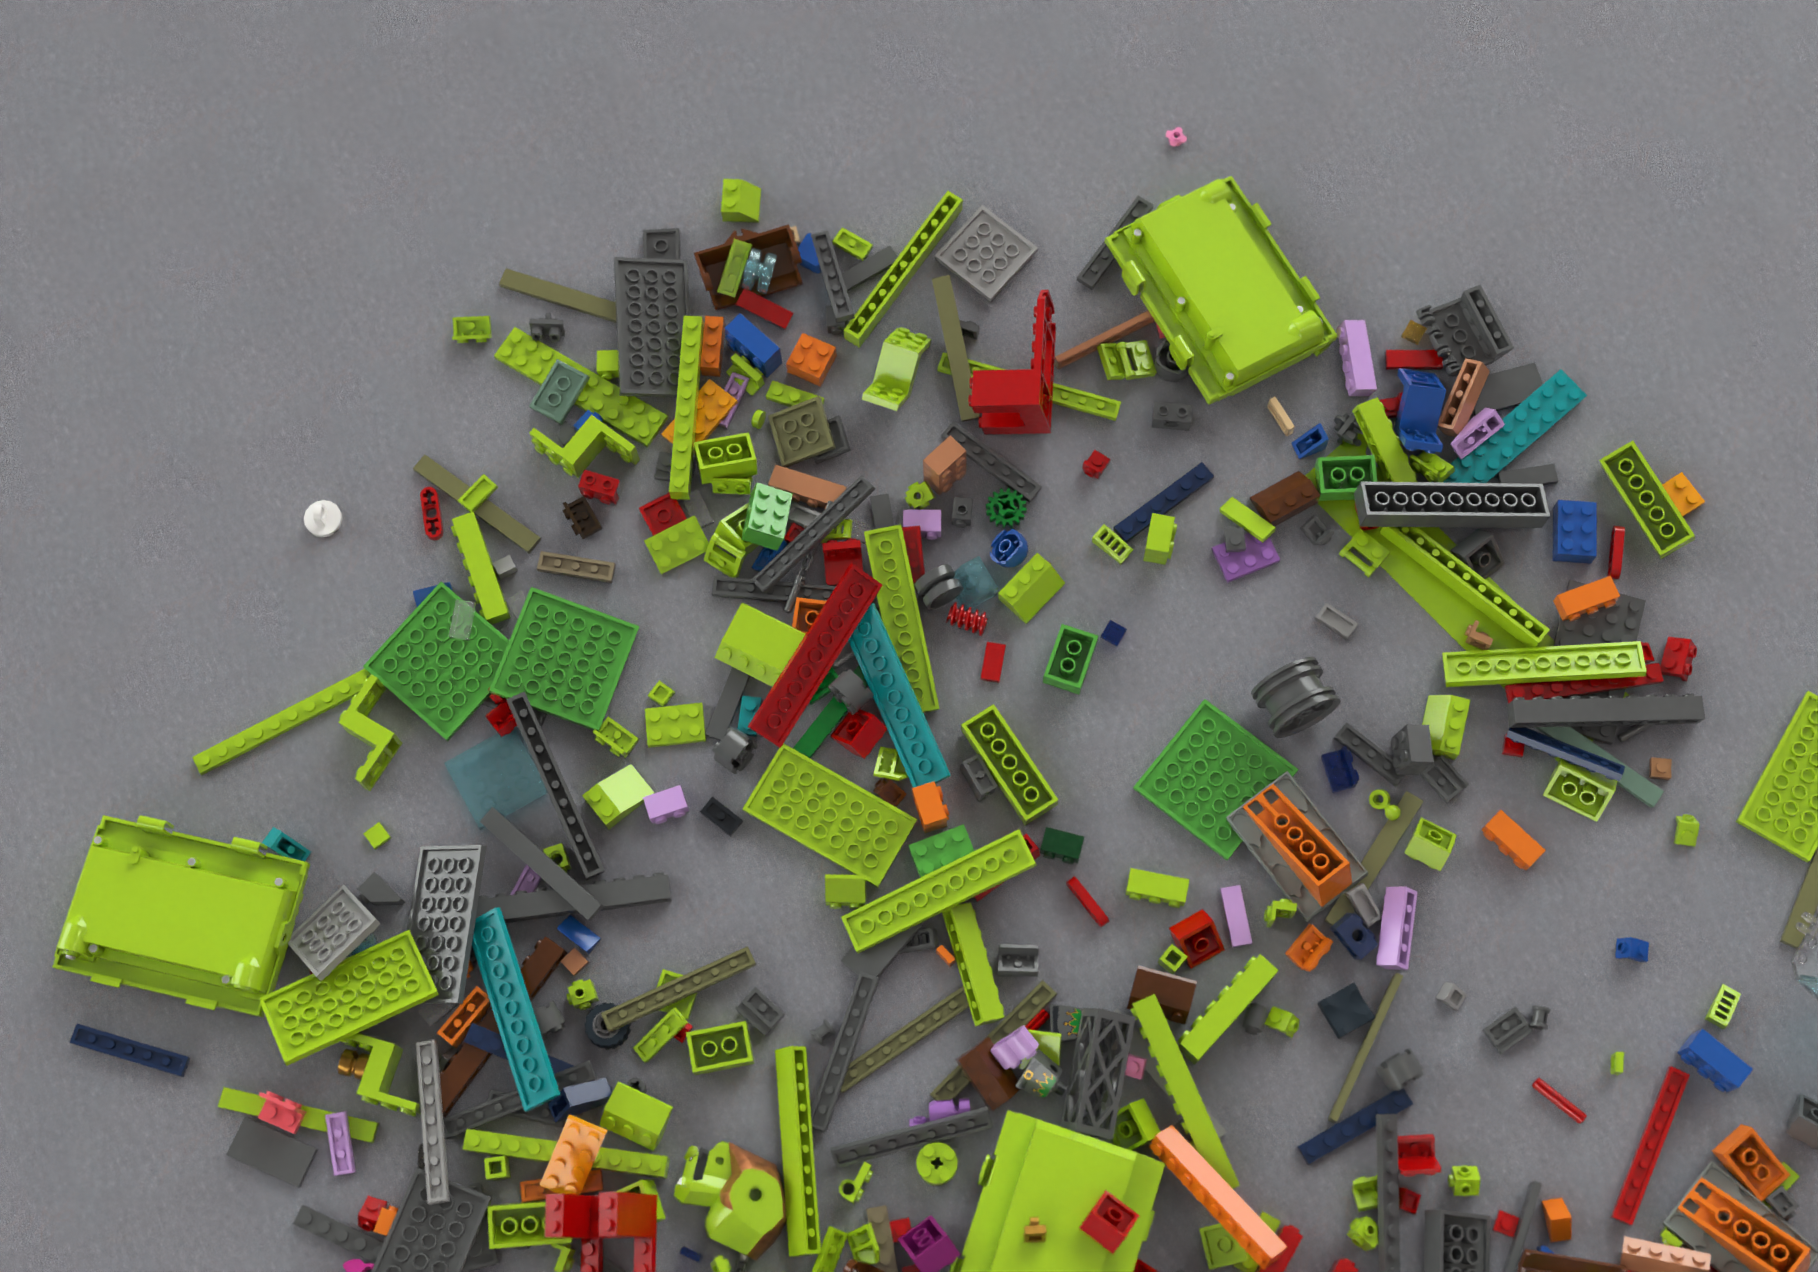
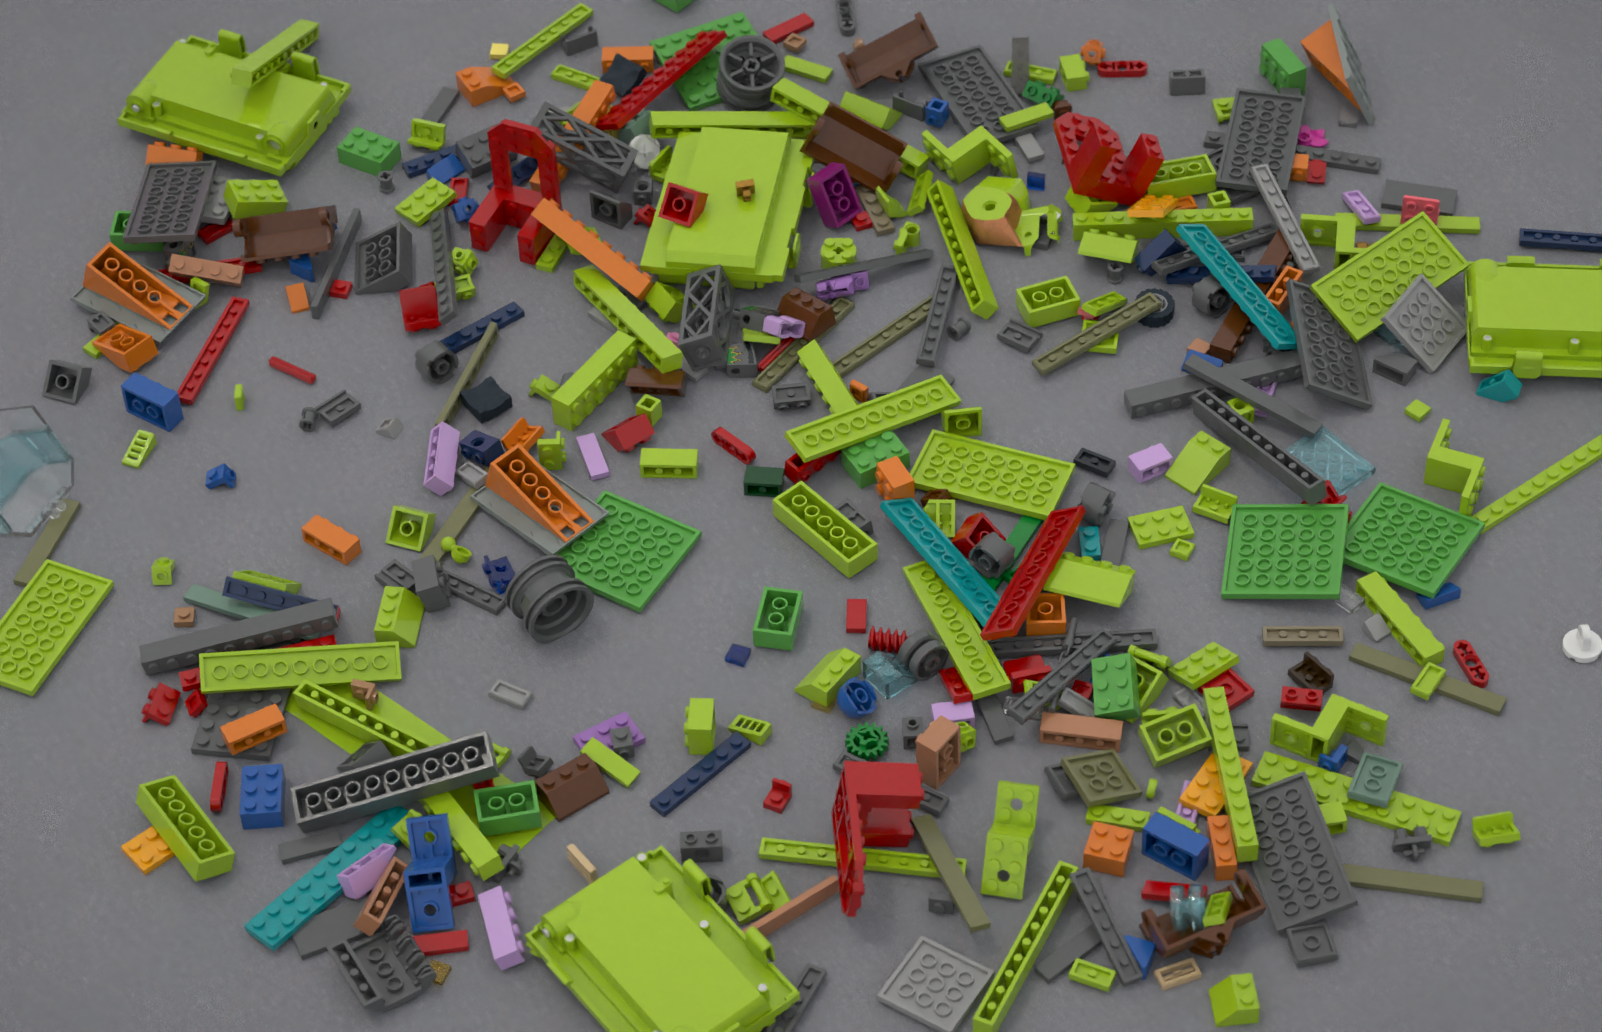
camera: 170 degrees right, 25 degrees down
(462, 619) = (1399, 563): clear tile -> none
(589, 994) = (1183, 322): lime brick -> none
(1311, 442) = (546, 844): blue slope -> none
(1464, 1180) = (371, 307): lime brick -> none

